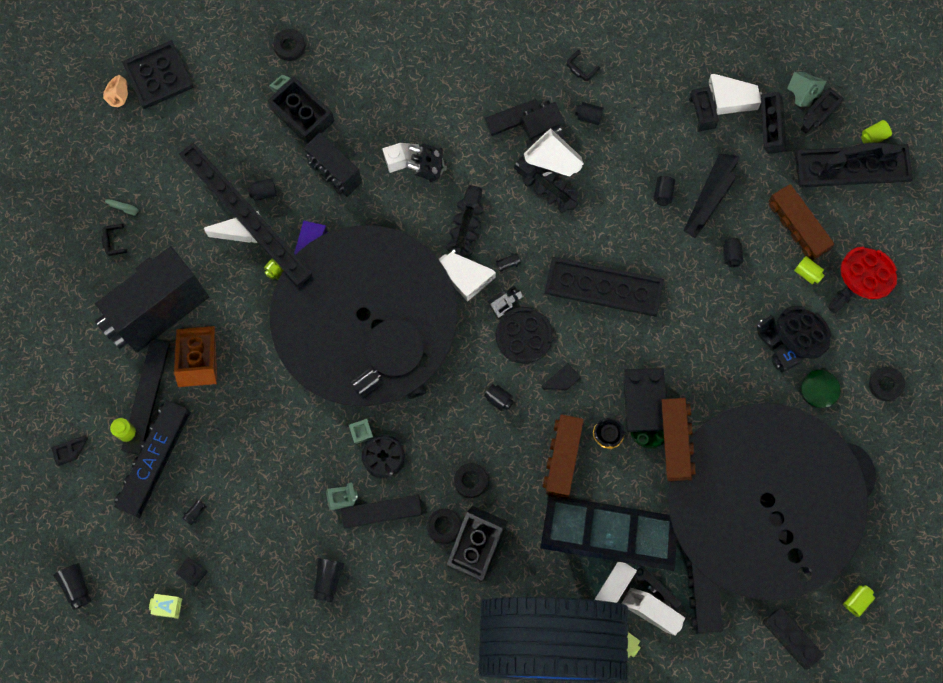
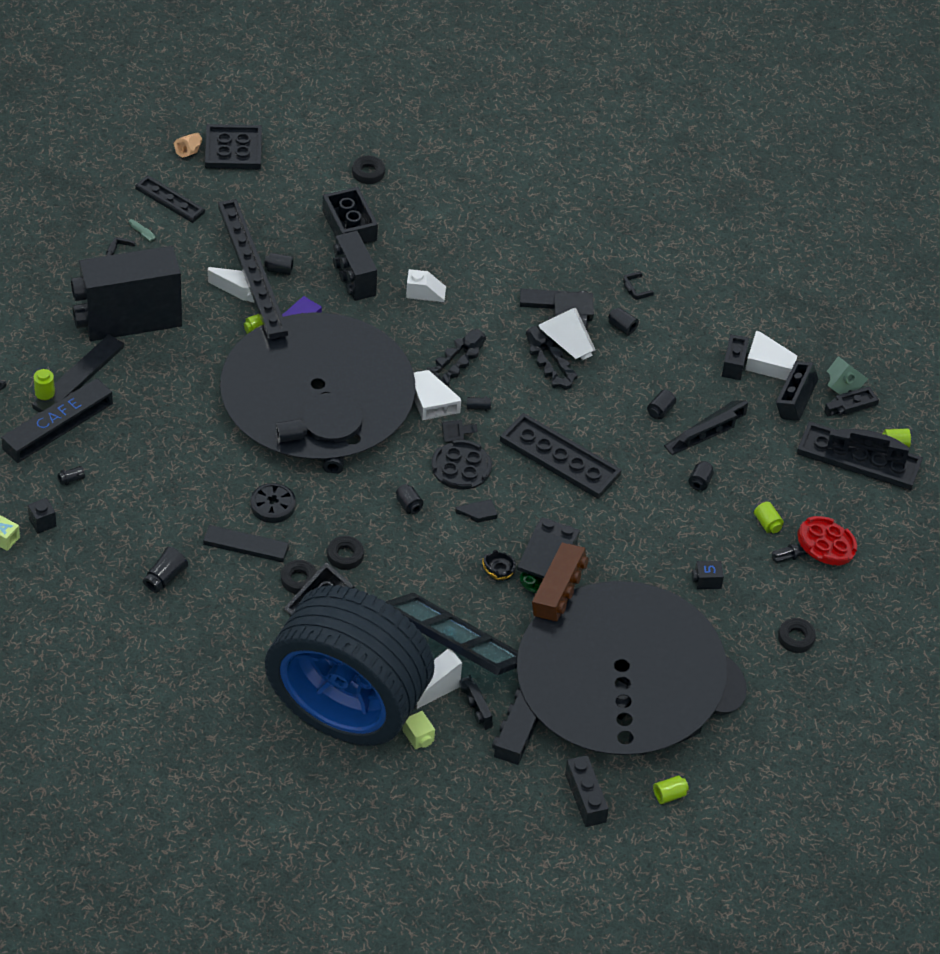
camera: 15 degrees right, 25 degrees down
(129, 159) = (170, 199): none -> black tile
(195, 357) = (142, 362): dark orange slope -> none
(341, 497) = (215, 516): sand green bracket -> none
(361, 431) = (262, 474): sand green plate -> none
(427, 162) = (446, 298): black piece -> none
(564, 456) = (445, 565): reddish brown brick -> none
(653, 611) = (462, 715): white slope -> none
(768, 332) = (702, 547): black bracket -> none
(801, 222) = (781, 478): reddish brown brick -> none
(803, 332) = (735, 559): black tile -> none
(820, 388) = (728, 614): dark green dish -> none

